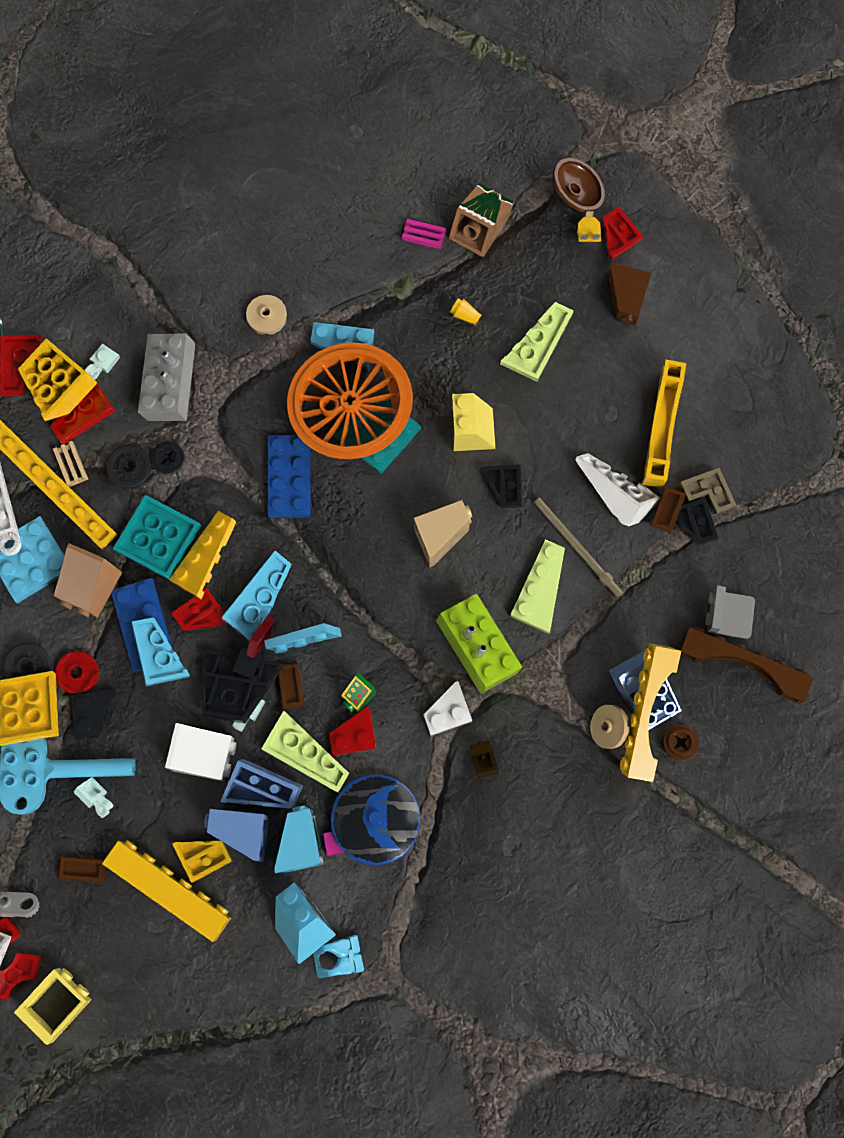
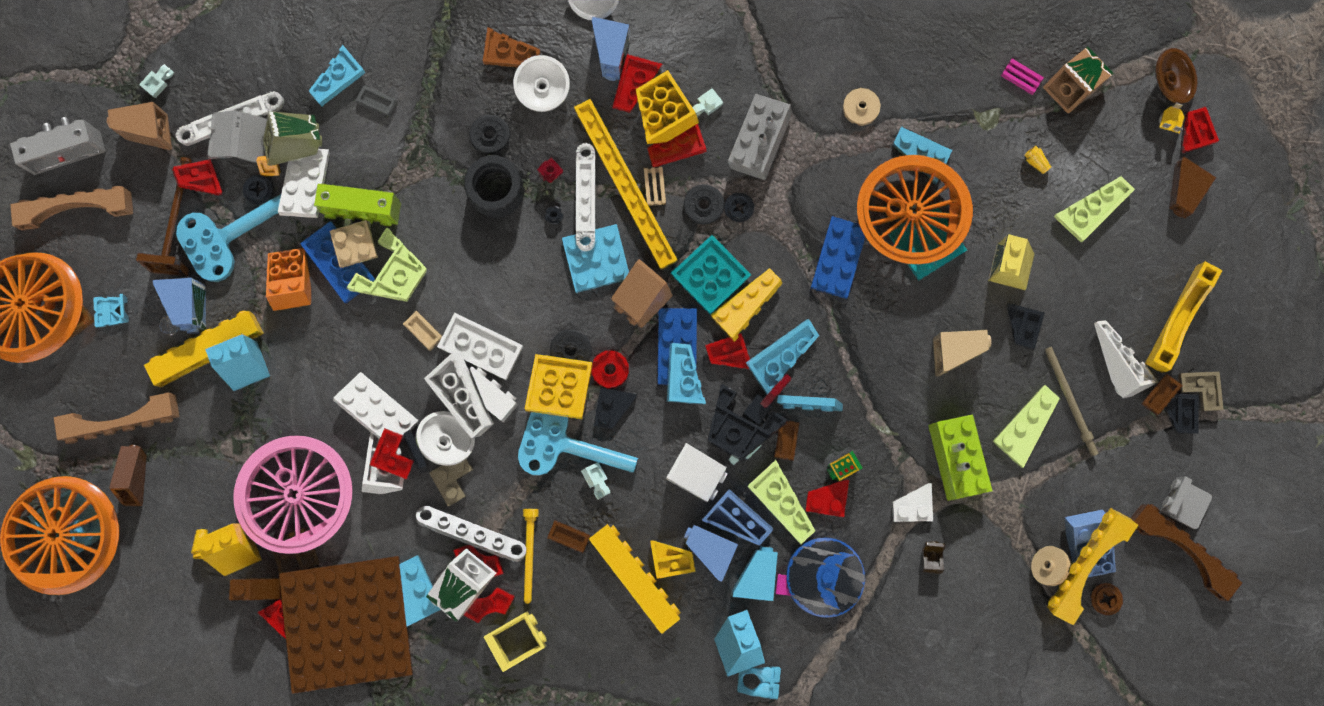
camera: 20 degrees right, 5 degrees up
(32, 861) = (530, 516): none -> yellow piece

